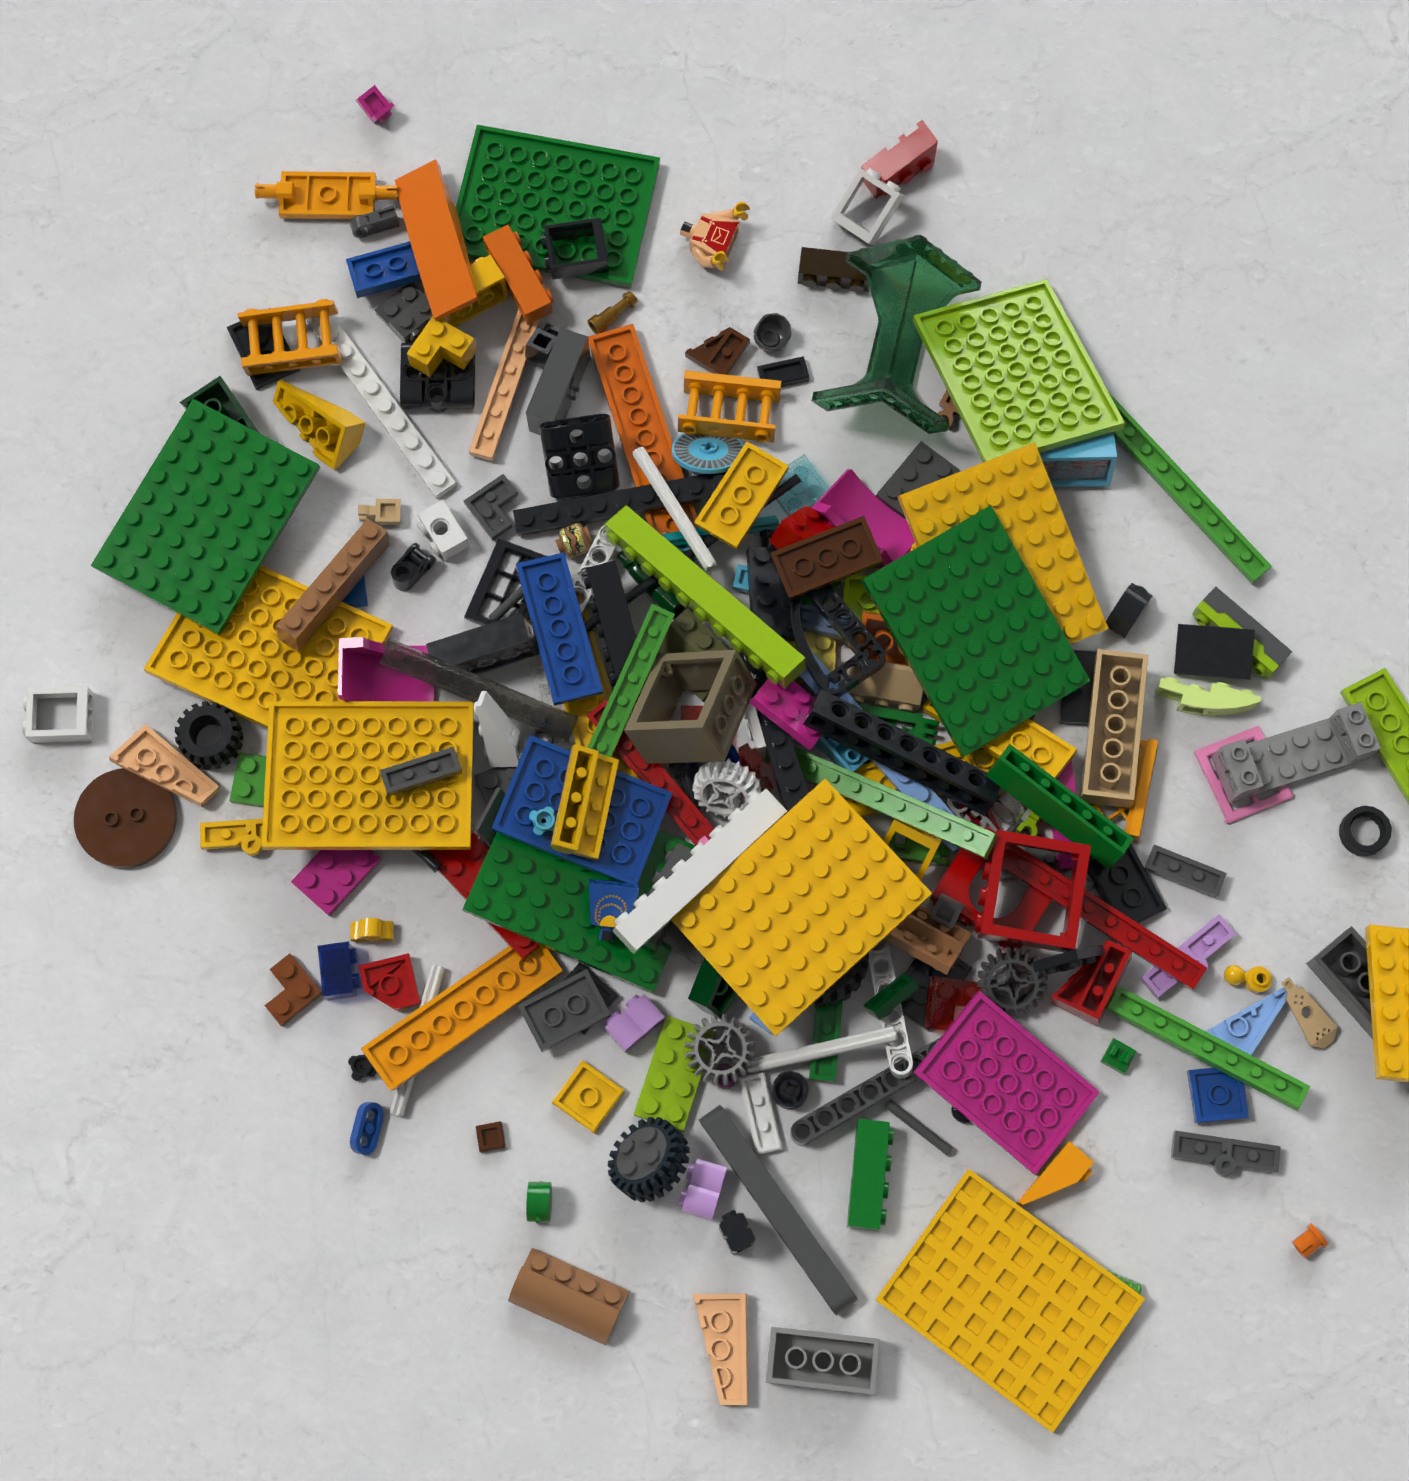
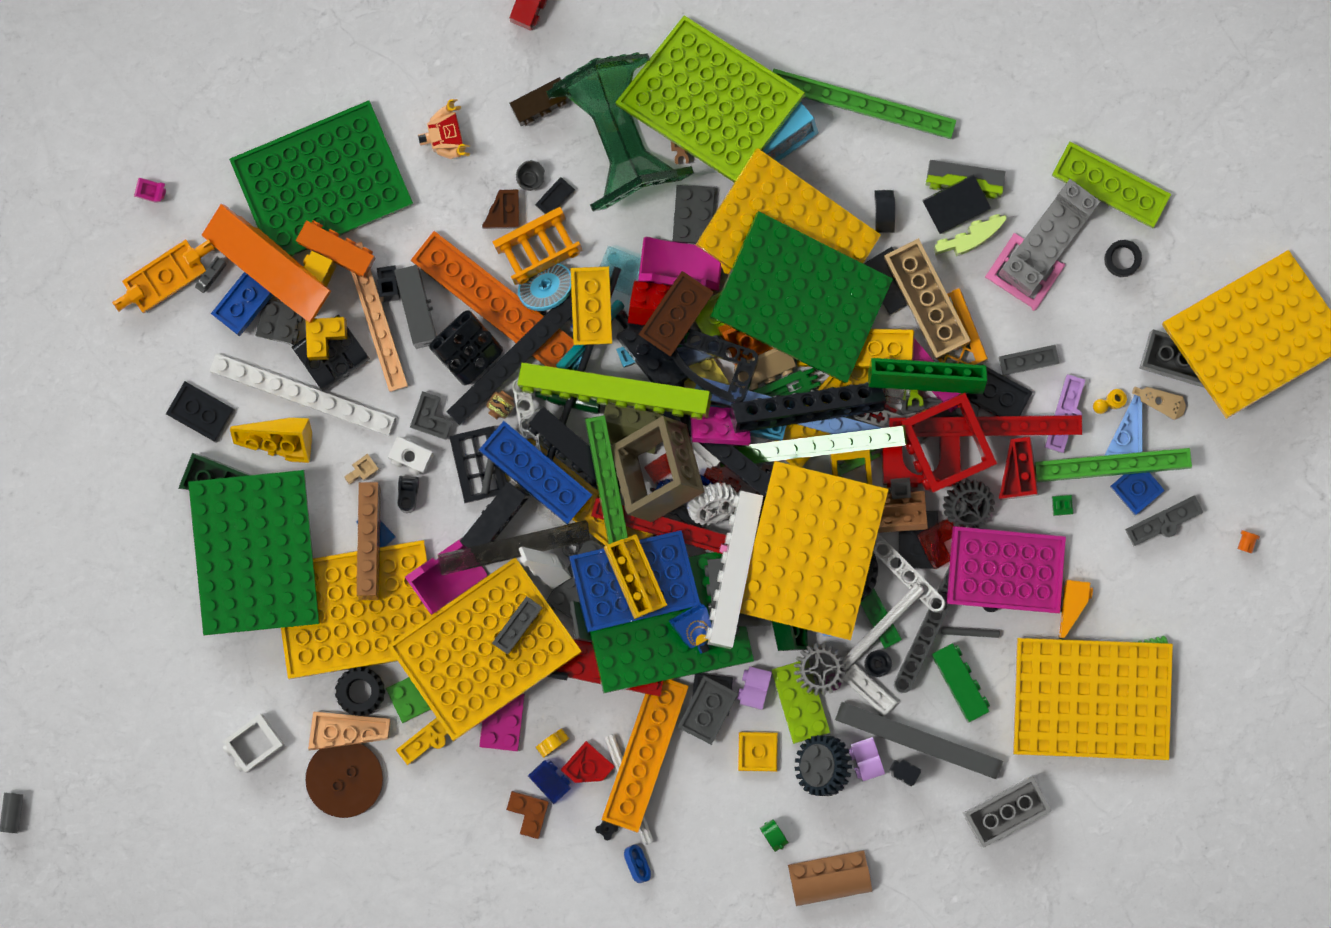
camera: 30 degrees left, 10 degrees up
(301, 357) = (220, 413): light orange fence -> none
(490, 1137) = (715, 816): reddish brown tile -> none
(547, 814) = (611, 605): medium azure plate -> none
(575, 230) = (357, 186): black window -> none
(599, 322) = (412, 237): pearl gold piece -> none
(674, 508) = (553, 343): white axle -> none
(726, 1339) = (940, 837): light nougat wing -> none
(857, 229) = (533, 63): white window -> none
(891, 996) = (902, 566): dark green plate -> none
(1068, 960) = (993, 472): black plate -> none

